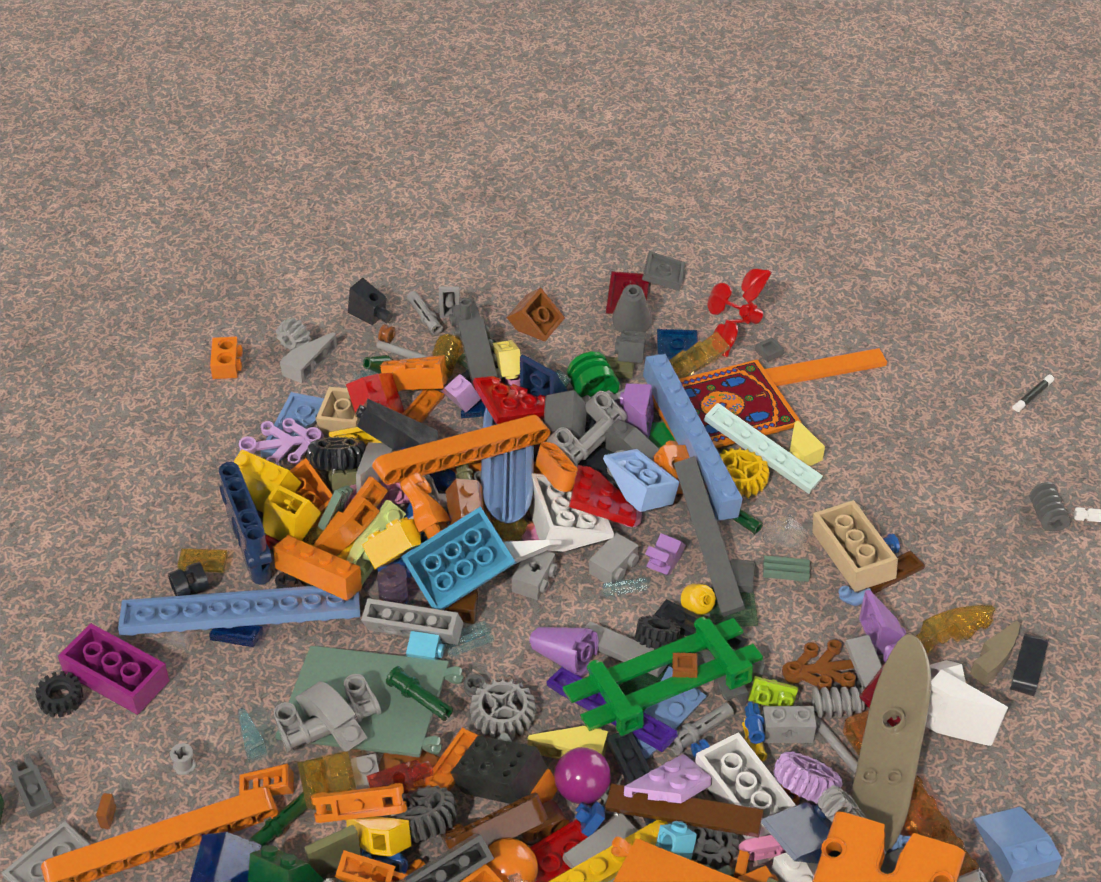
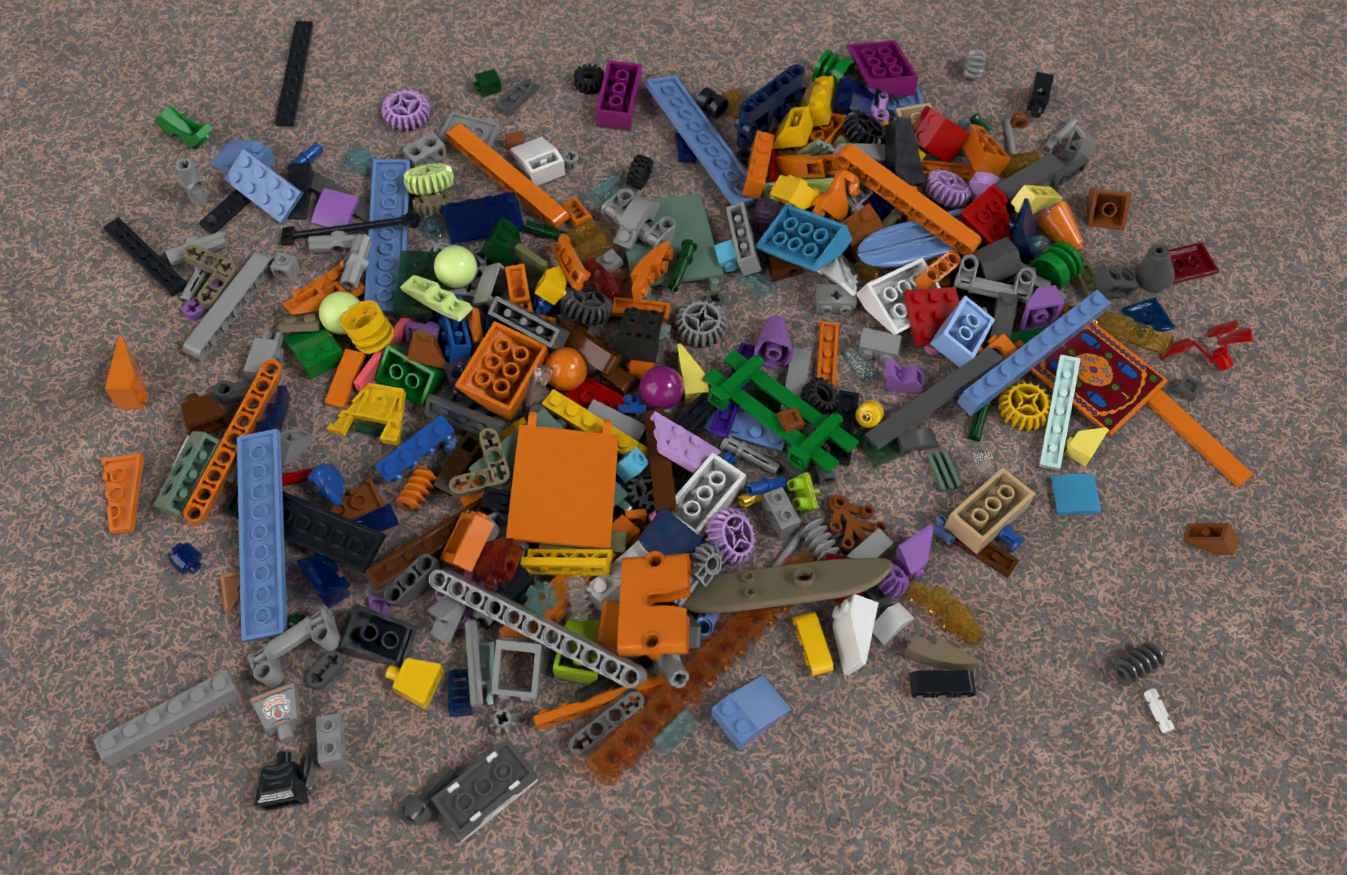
camera: 65 degrees right, 15 degrees up
(155, 793) = (539, 160): none -> white slope
(223, 449) = (831, 66): none -> green wheel
(225, 357) = (927, 36): orange brick -> none
(251, 688) = (639, 171): none -> black tyre
(253, 402) = (885, 67): none -> magenta slope
(279, 448) = (852, 96): none -> clear blue slope
(307, 358) = (957, 82): light grey slope -> none
(416, 727) = (649, 268): none -> orange slope
(449, 419) = (947, 188): none -> lavender gear
(547, 353) = (1061, 226): none -> orange cone
(597, 609) = (828, 351): none -> orange tile
(664, 271) = (1230, 279): dark grey plate -> none
(853, 478) = (1076, 494): none -> dark azure slope
(935, 403) = (1212, 537): none -> dark orange slope
(954, 755) = (814, 644): none -> yellow beam
(1033, 393) = (1288, 623): pearl dark grey bar -> none

